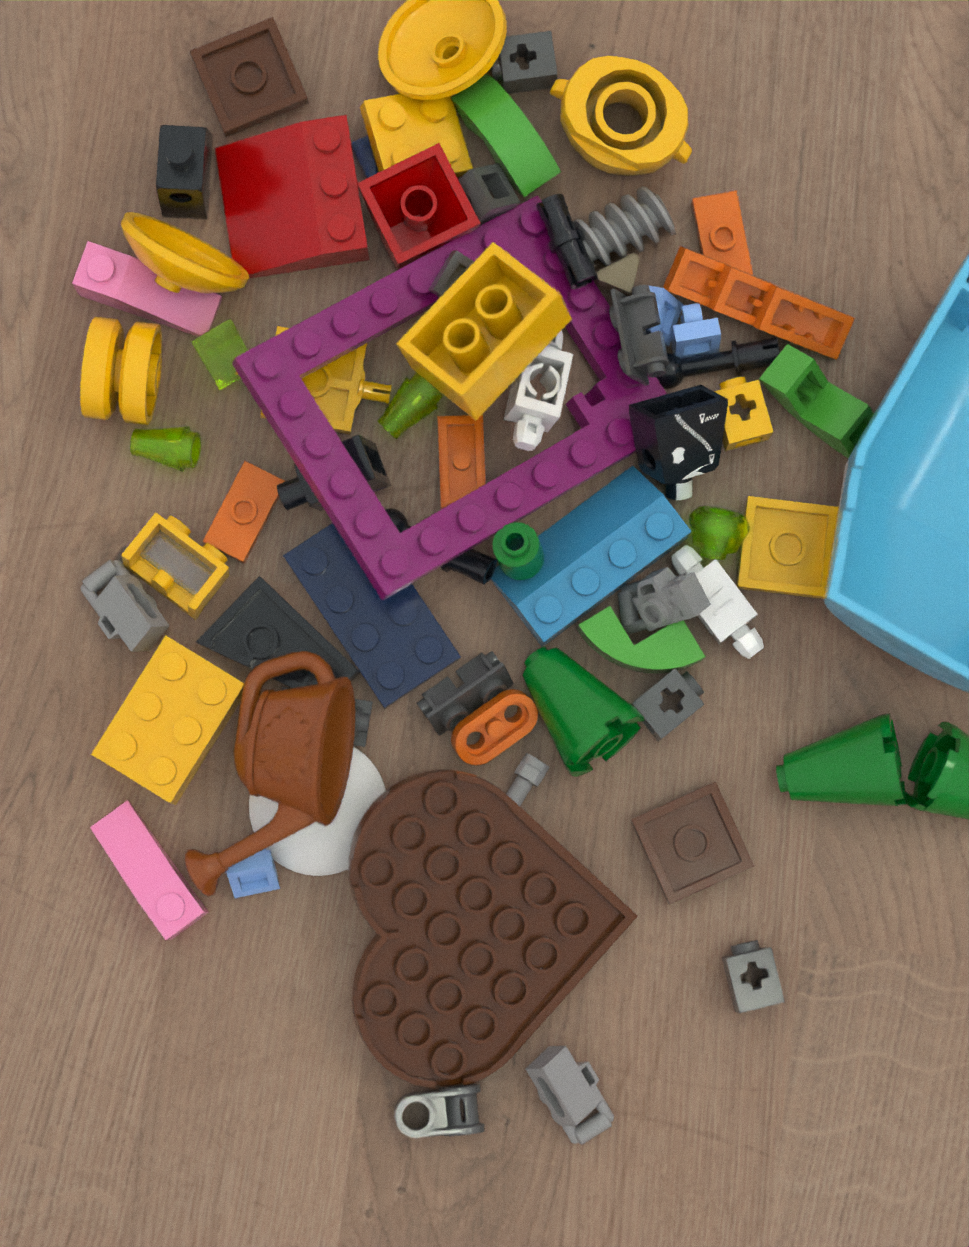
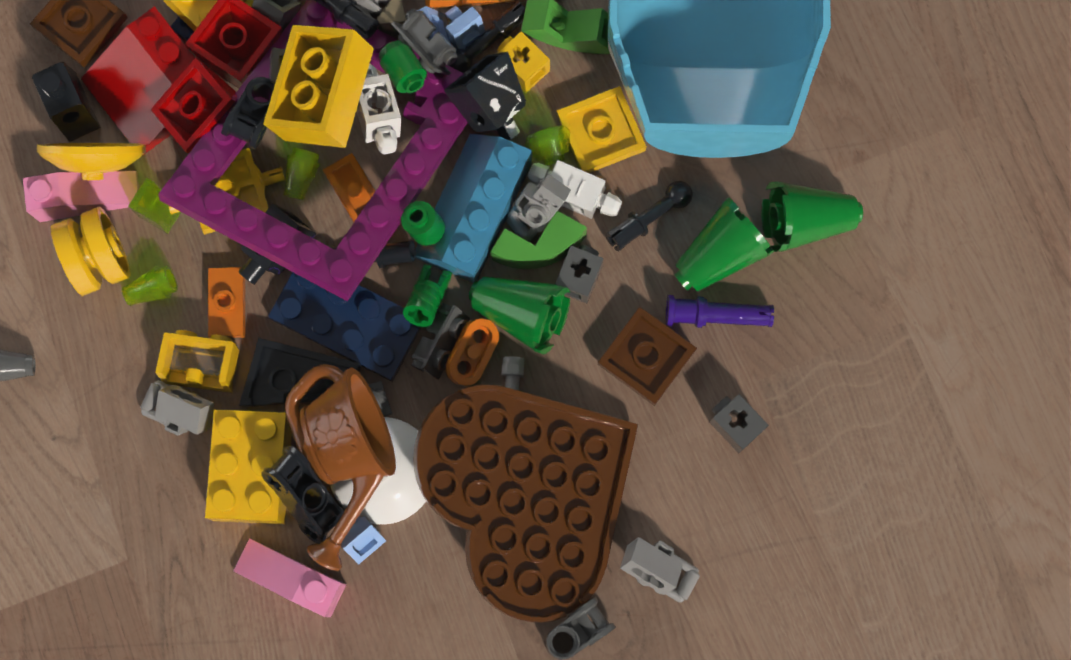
camera: 20 degrees left, 5 degrees down
(215, 790) = (303, 494): none -> black piece
(330, 266) = (194, 104): none -> red slope
(386, 322) = (248, 115): none -> black piece
(476, 635) = (426, 297): none -> green hinge
(595, 350) = (402, 67): none -> green brick
(783, 826) = (702, 312): none -> dark purple pin
(834, 673) = (676, 195): none -> black pin

